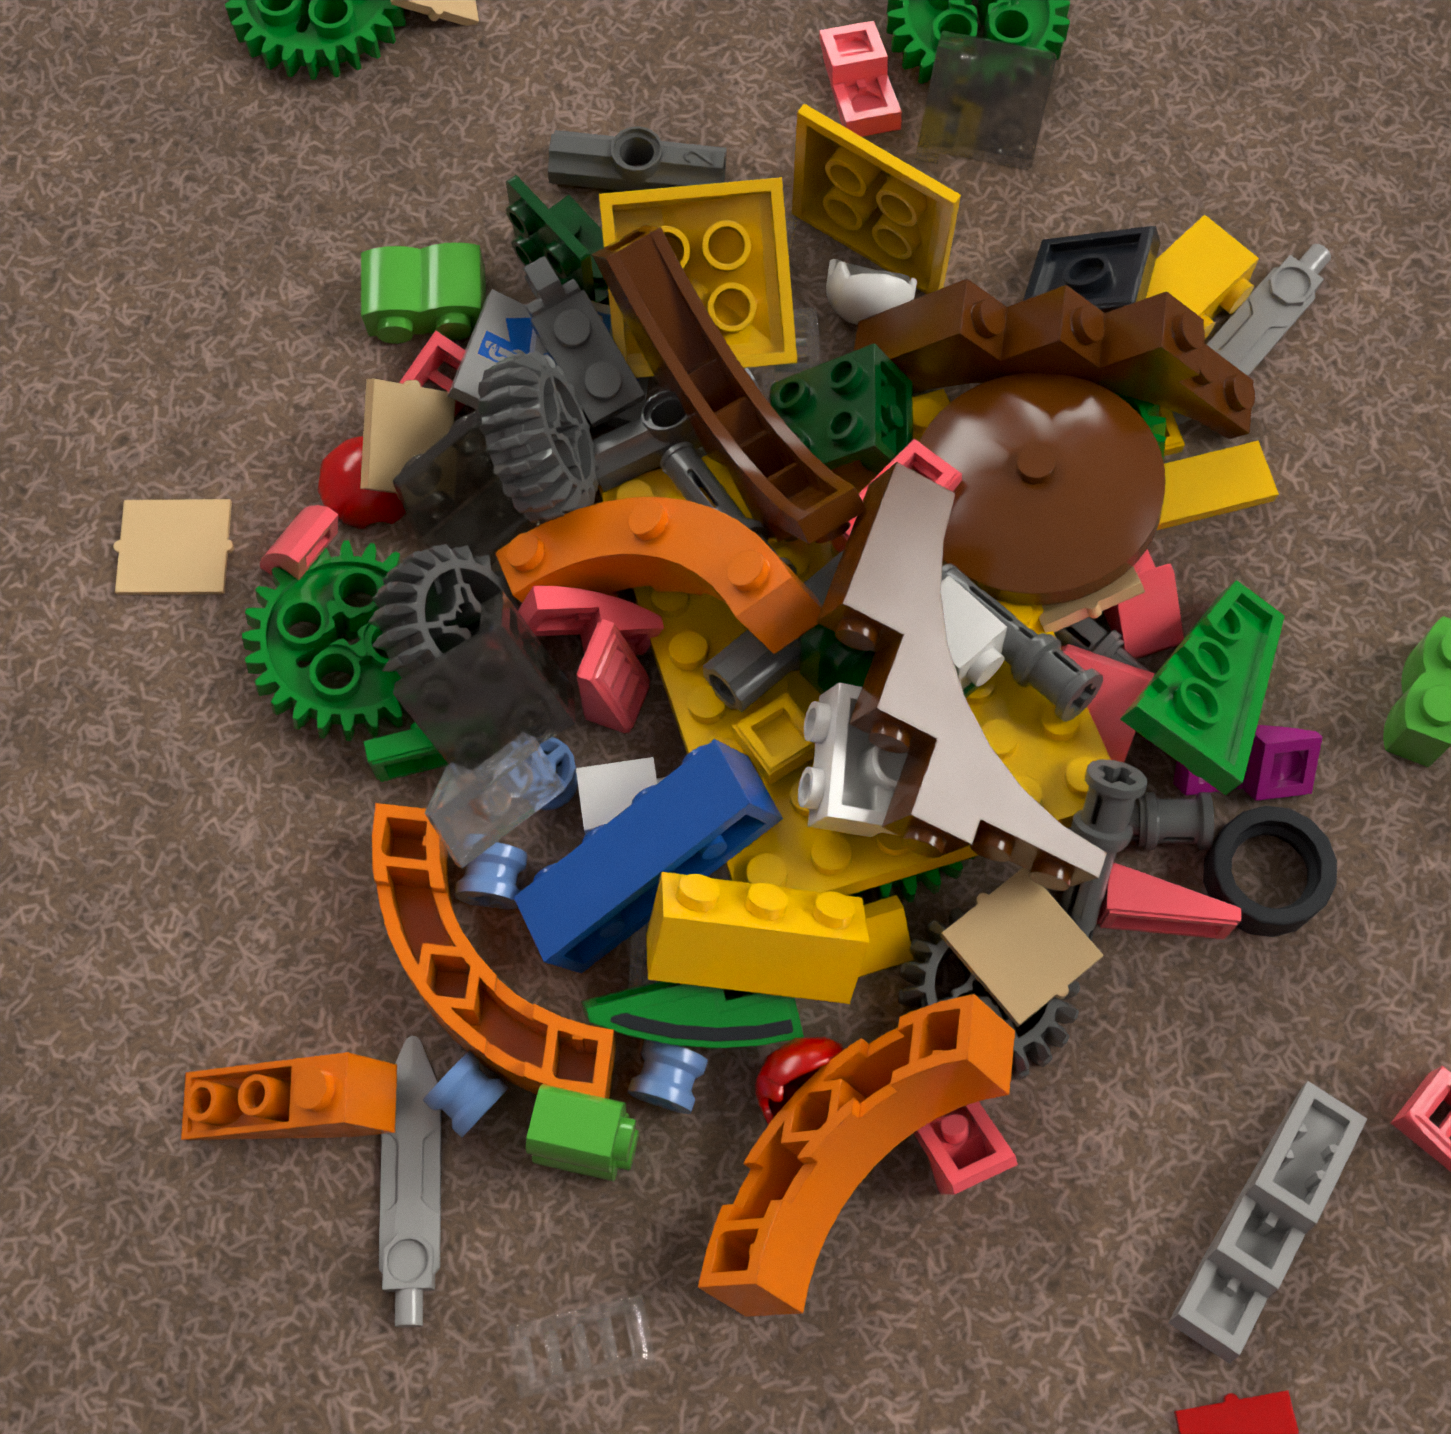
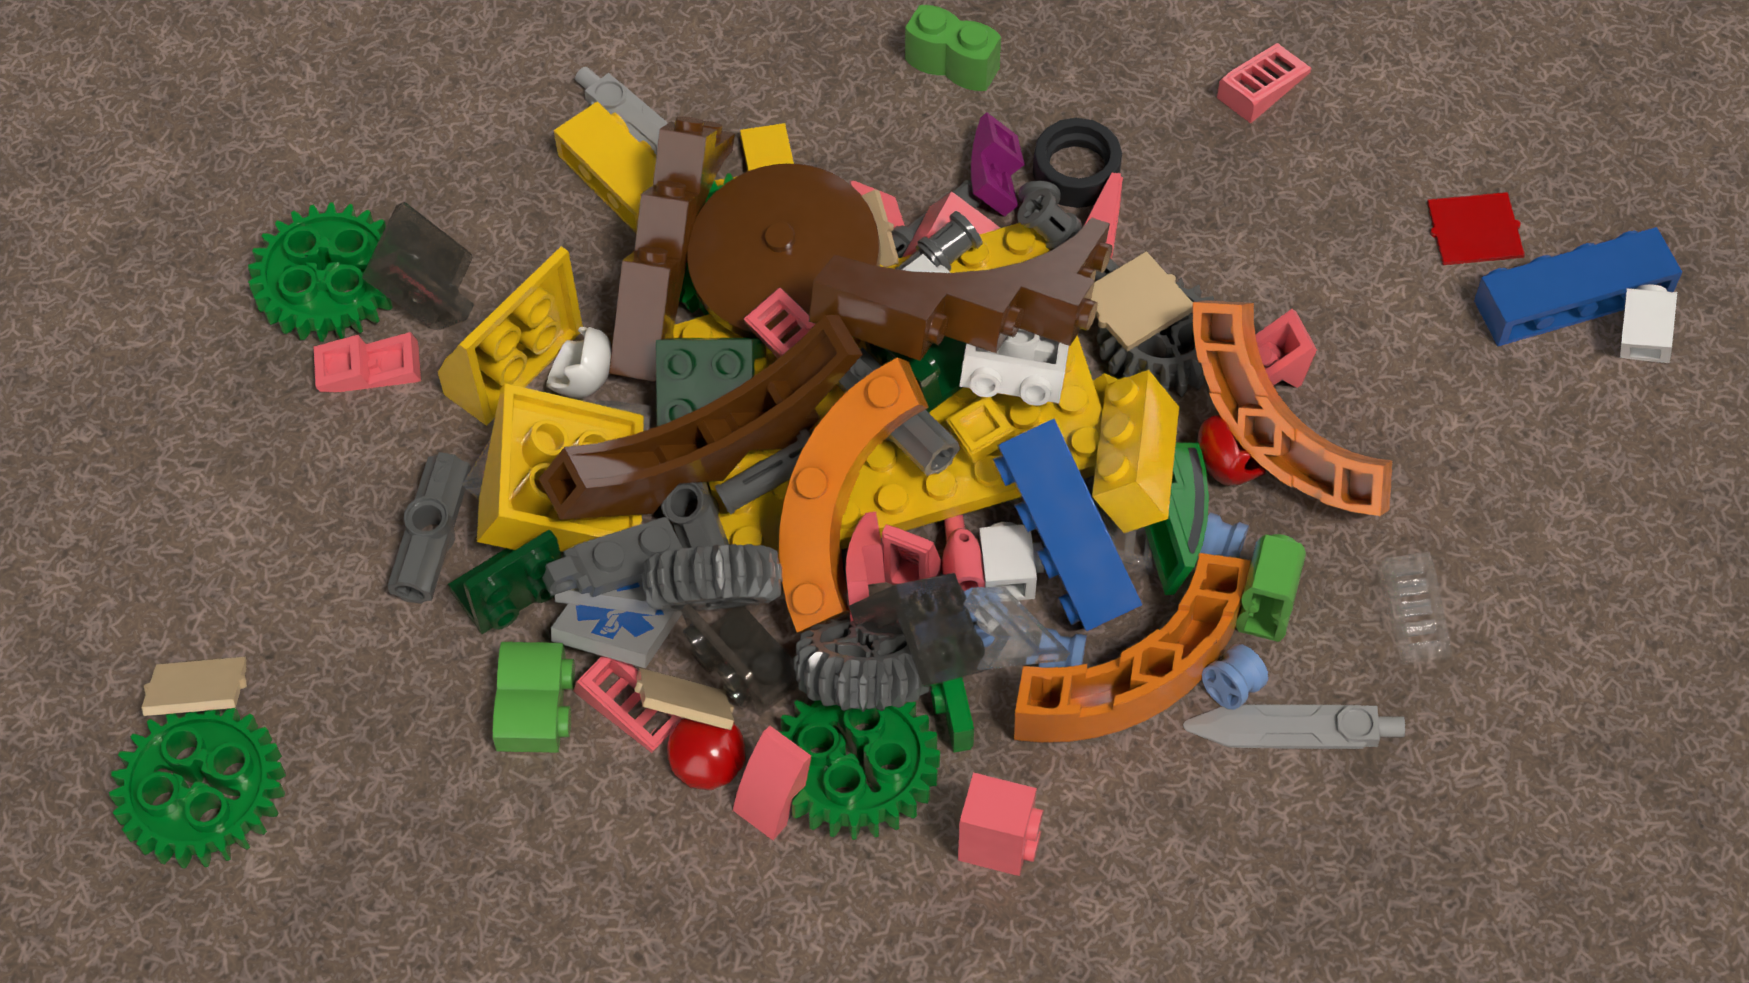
camera: 85 degrees left, 10 degrees down
(173, 547) = (747, 909): tan piece -> none
(237, 796) = (999, 825): none -> coral brick
(292, 1099) = (1238, 808): orange slope -> none
(612, 744) = (962, 554): none -> coral piece
(1101, 267) = (596, 210): black tile -> none
(1213, 689) = (949, 163): green wing -> none
(1268, 1222) = (1329, 199): light grey slope -> none

